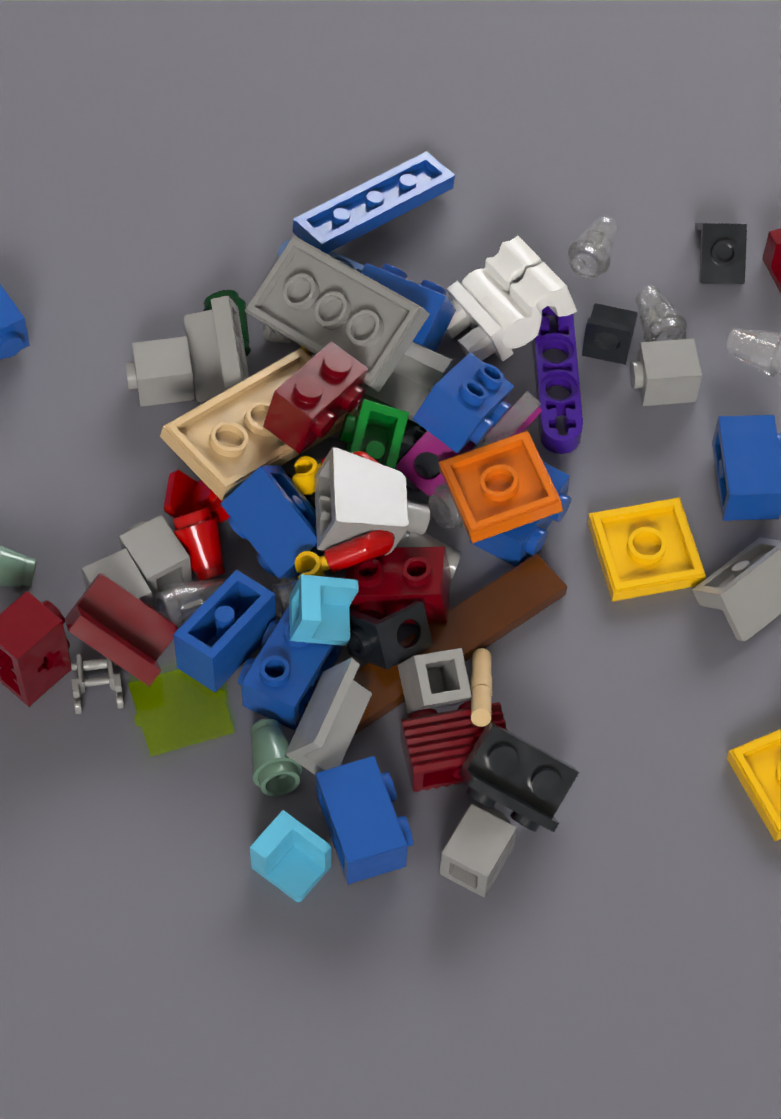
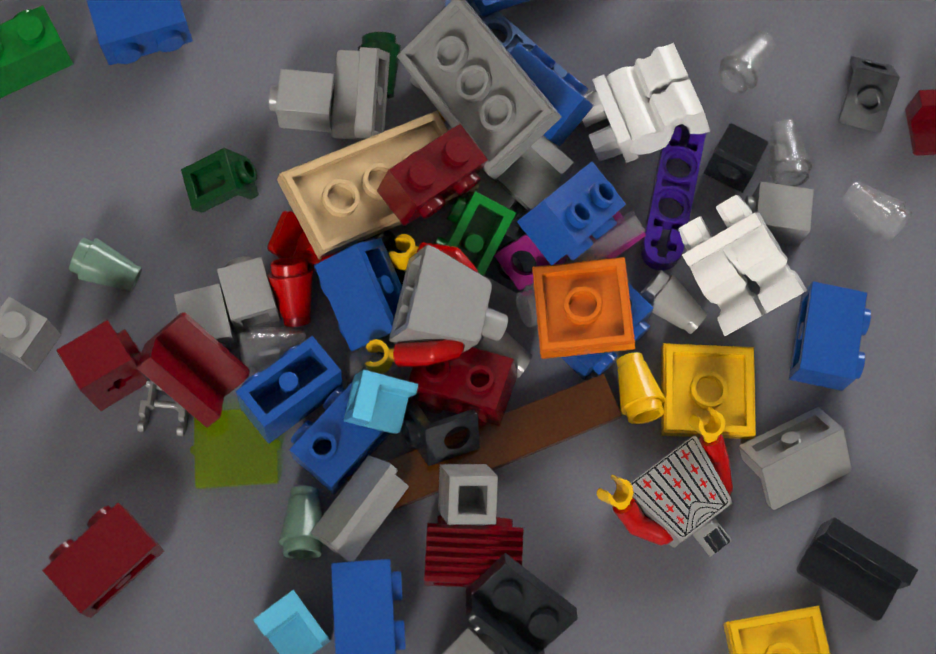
camera: 10 degrees right, 15 degrees up
(76, 832) = (102, 559): none -> dark red brick
(93, 461) = (219, 179): none -> dark green bracket
(481, 687) = (510, 509): tan piece -> none
(577, 560) = (638, 390): none -> yellow cone
(589, 473) = (673, 302): none -> light grey cone
(632, 408) = (739, 250): none -> white hips
(647, 638) = (680, 492): none -> torso

